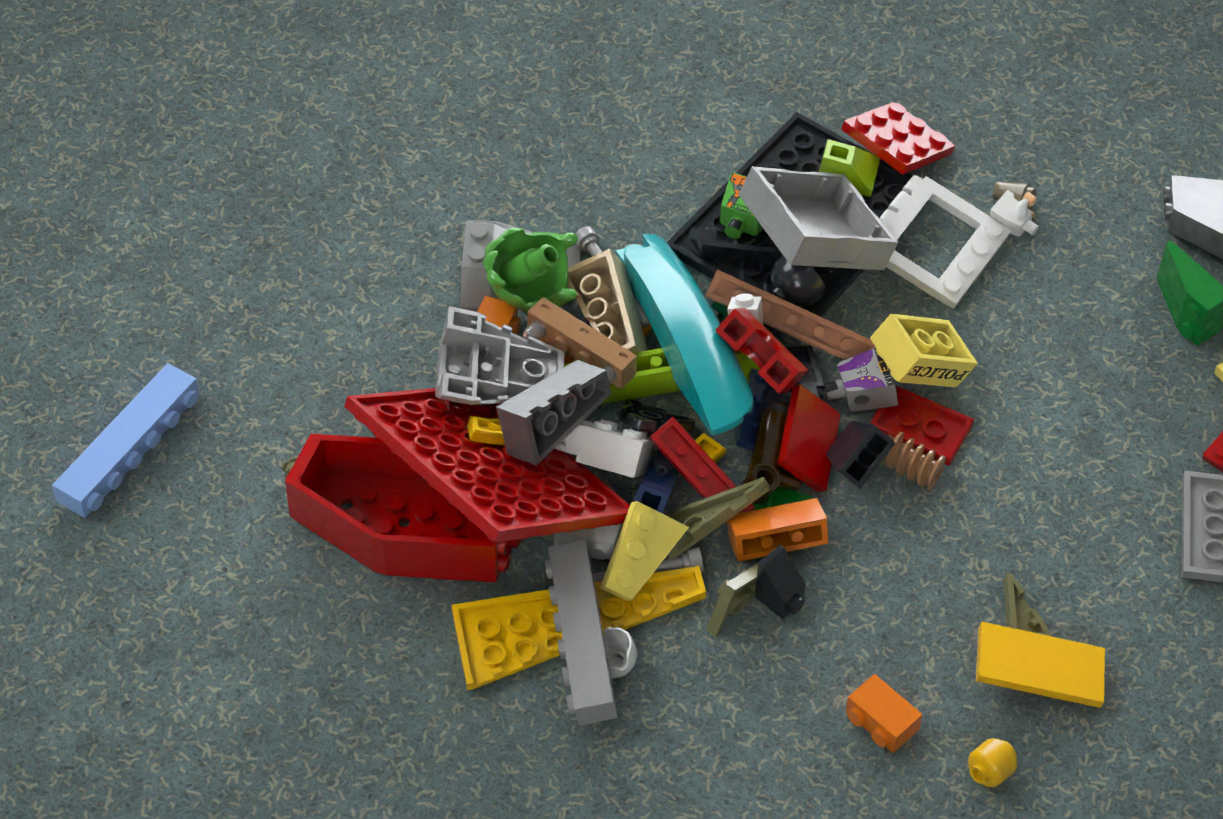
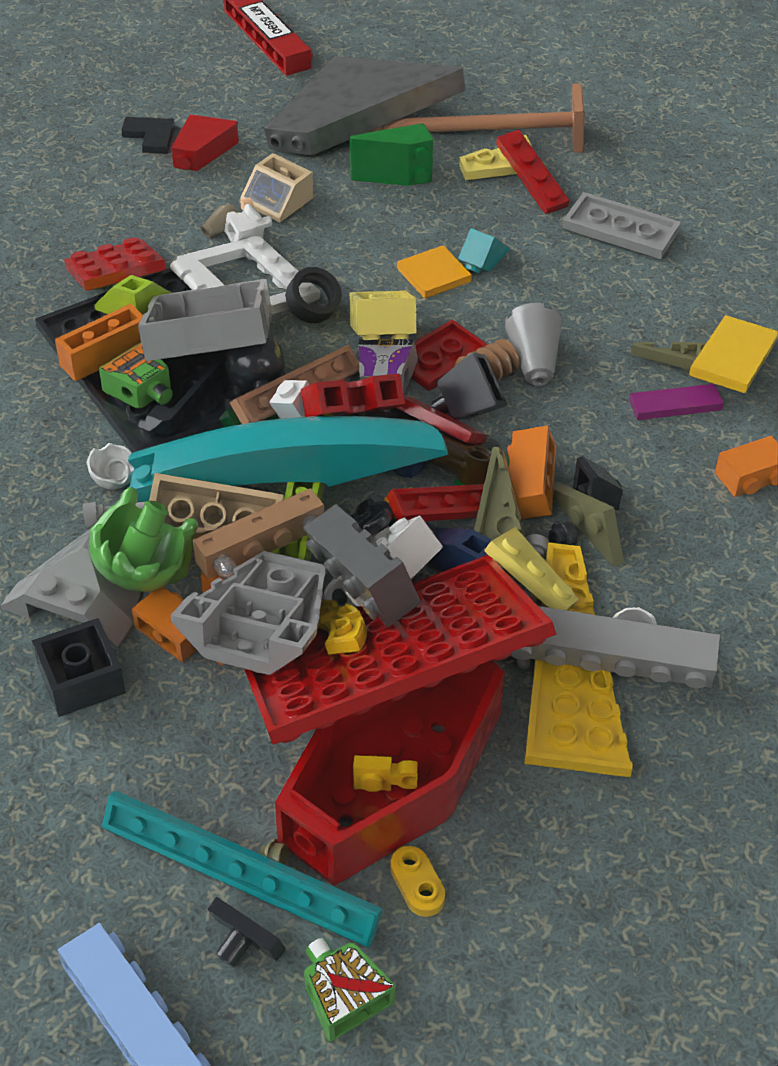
camera: 70 degrees left, 5 degrees down
(200, 543) = (345, 987): none -> torso
(226, 470) = (242, 934): none -> black tile
(278, 452) = (242, 868): none -> teal tile
(313, 567) = (417, 878): none -> yellow plate
(381, 501) = (379, 773): none -> yellow plate
(417, 285) = (78, 667): none -> black brick
(639, 222) = (110, 466): none -> white hair
(715, 576) = (563, 533): none -> black plate
(754, 150) = (98, 342): none -> orange brick
(935, 274) = (326, 282): none -> black tyre
(950, 631) = (676, 401): none -> magenta tile
(961, 491) = (536, 337): none -> light grey cone
(1043, 386) = (434, 271): none -> light orange tile
(1085, 219) = (278, 187): none -> tan slope
(1091, 414) = (482, 251): none -> teal slope
(1129, 137) = (203, 141): none -> red slope
(1130, 99) = (155, 131): none -> black tile

